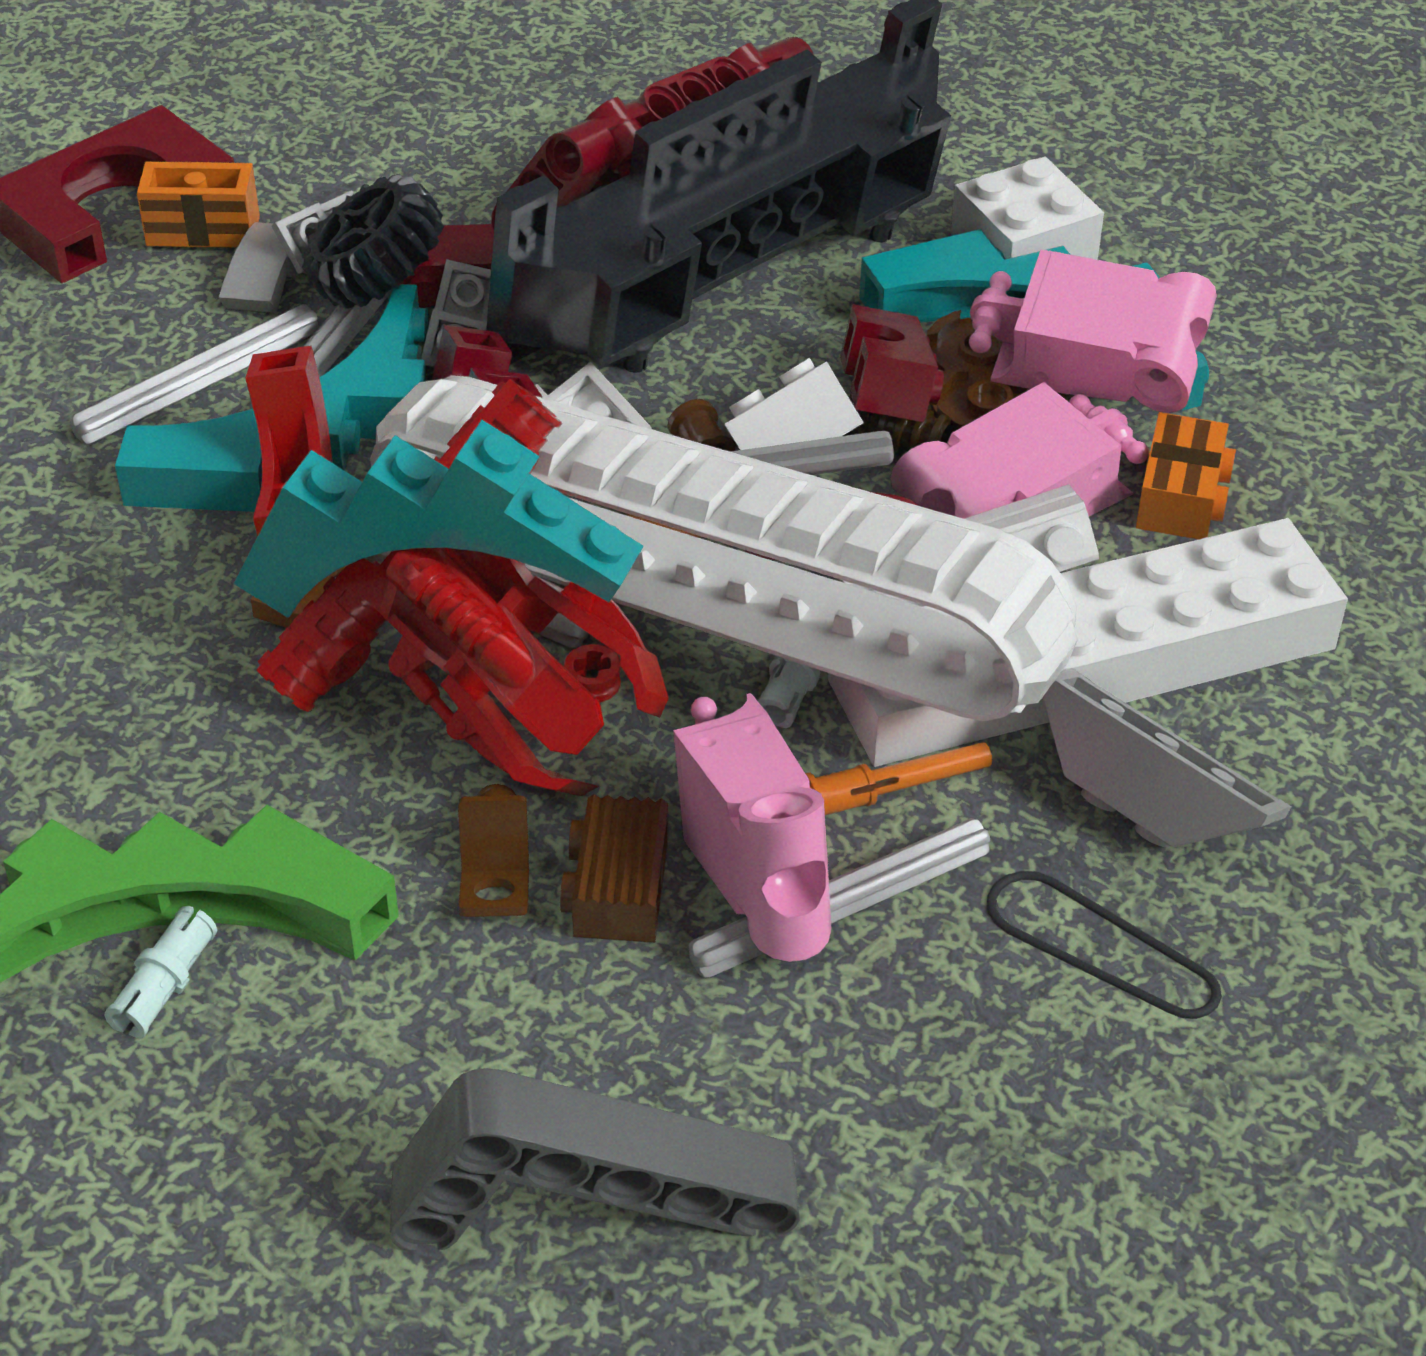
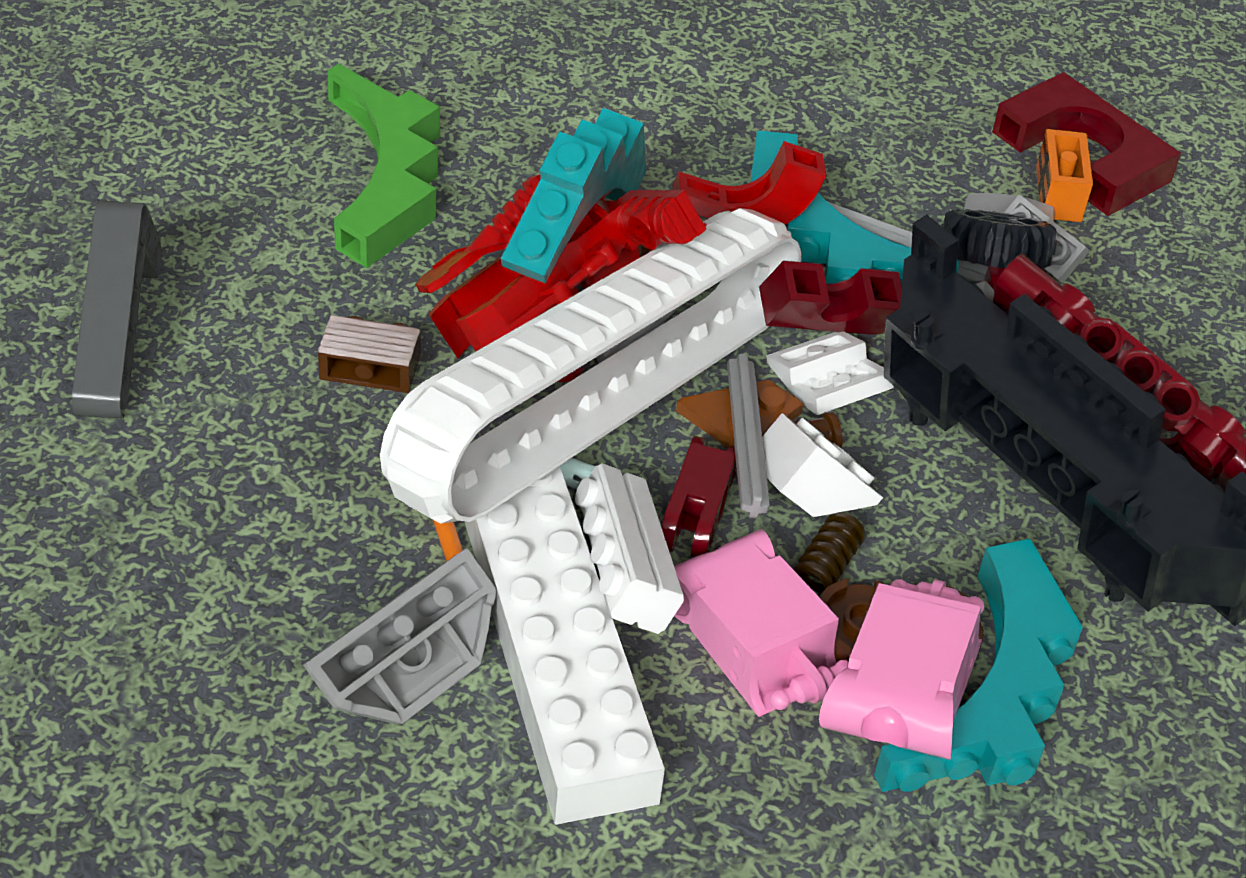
camera: 90 degrees right, 0 degrees up
(161, 972) = (333, 165): light aqua pin -> none
(192, 375) = (874, 176): axle -> none
(493, 851) = (392, 304): reddish brown bracket -> none
(756, 826) = (349, 384): bright pink piece -> none
(855, 890) = (334, 470): light grey axle -> none
(890, 364) = (842, 526): dark red arch -> none
(1029, 211) = (1120, 680): white brick -> none
(1092, 970) = (217, 665): black piece -> none
(1183, 477) = (758, 736): orange brick -> none

